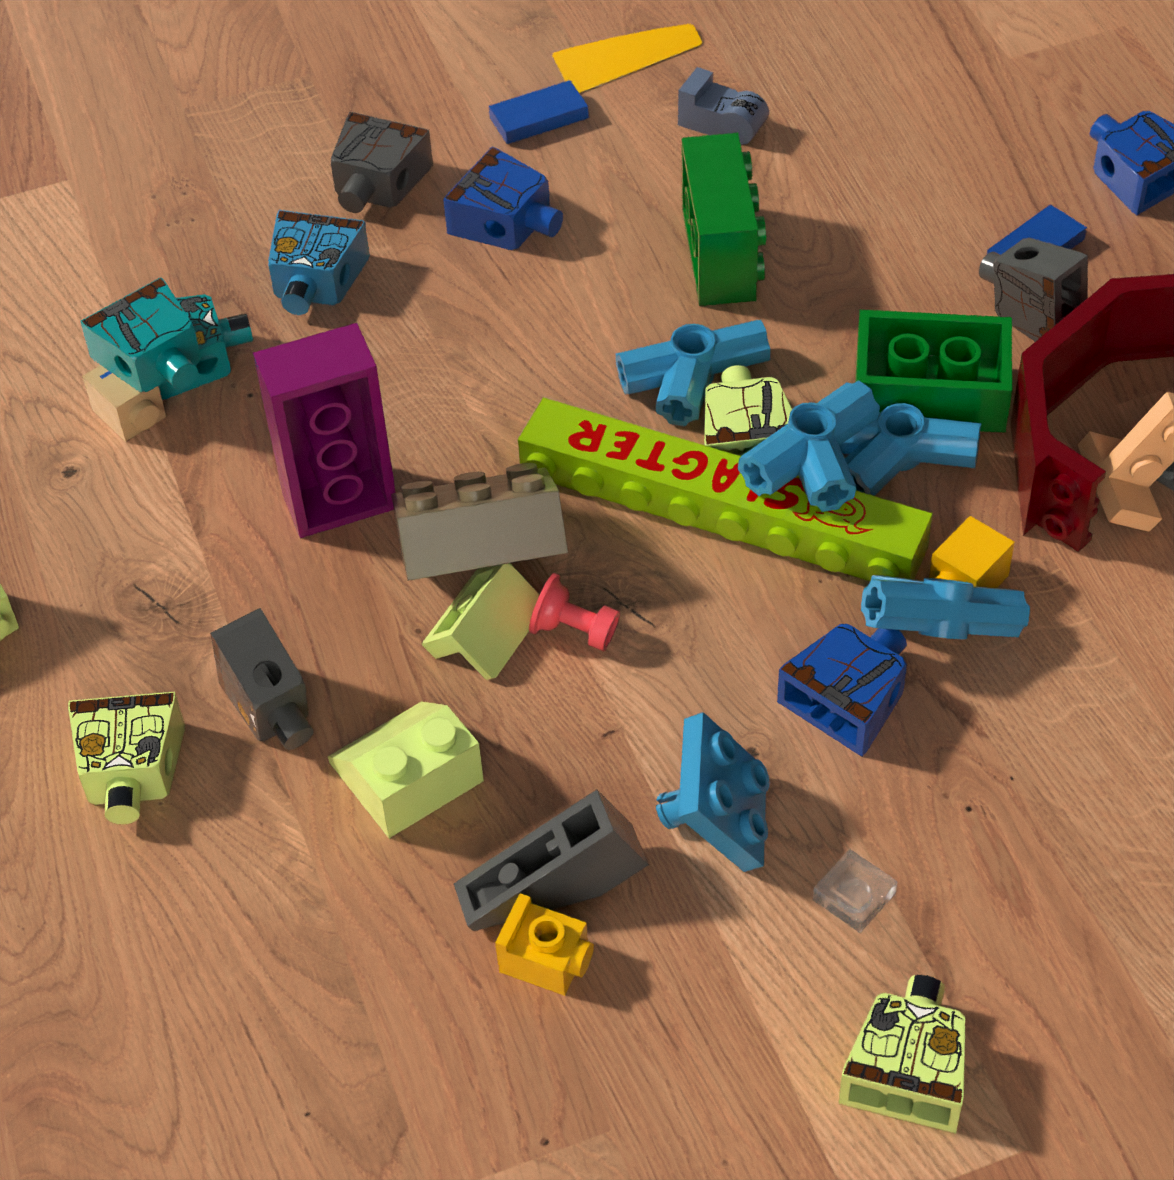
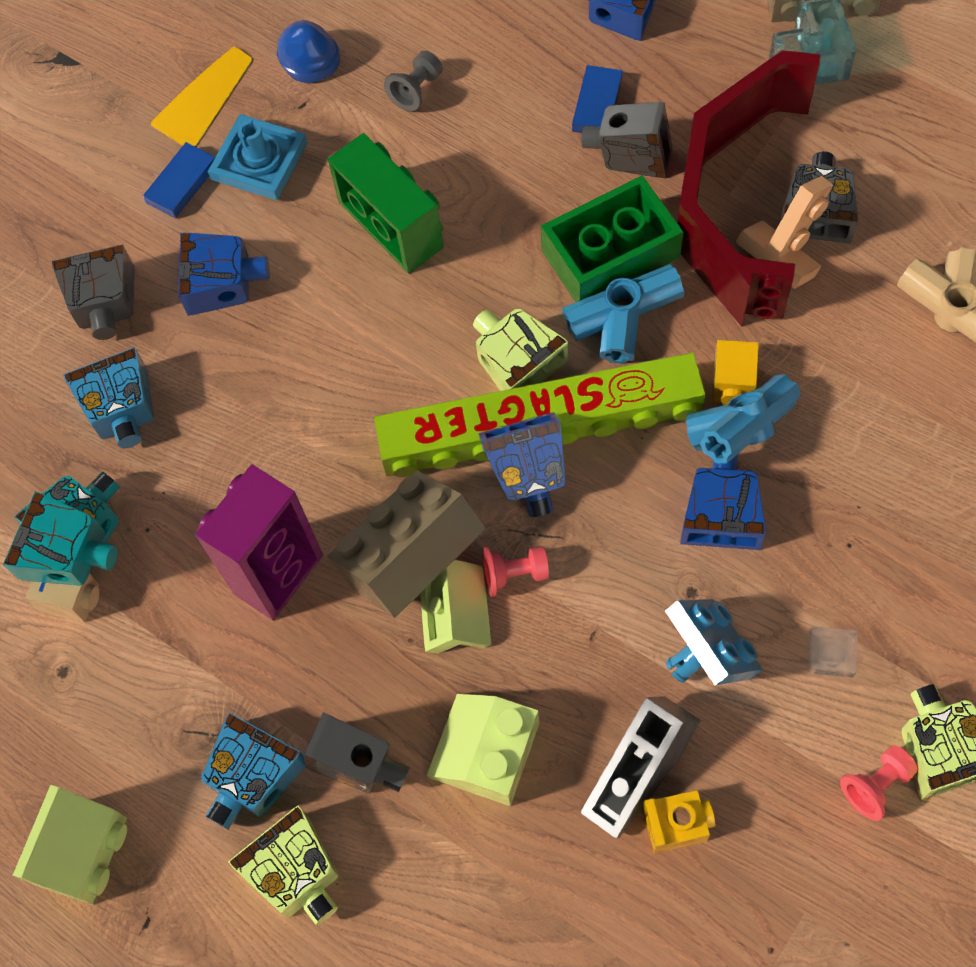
camera: 30 degrees left, 15 degrees up
(158, 643) = (248, 771): none -> torso
(630, 124) = (258, 157): none -> dark azure plate
(665, 517) = (528, 460): none -> torso
(690, 364) = (446, 338): dark azure piece -> none
(719, 109) = (313, 108): sand blue leg -> none
(760, 58) = (307, 52): none -> blue hat
(776, 1044) = (867, 792): none -> coral piece
(812, 448) = (598, 360): dark azure piece -> none
(831, 133) = (405, 89): none -> dark grey piece

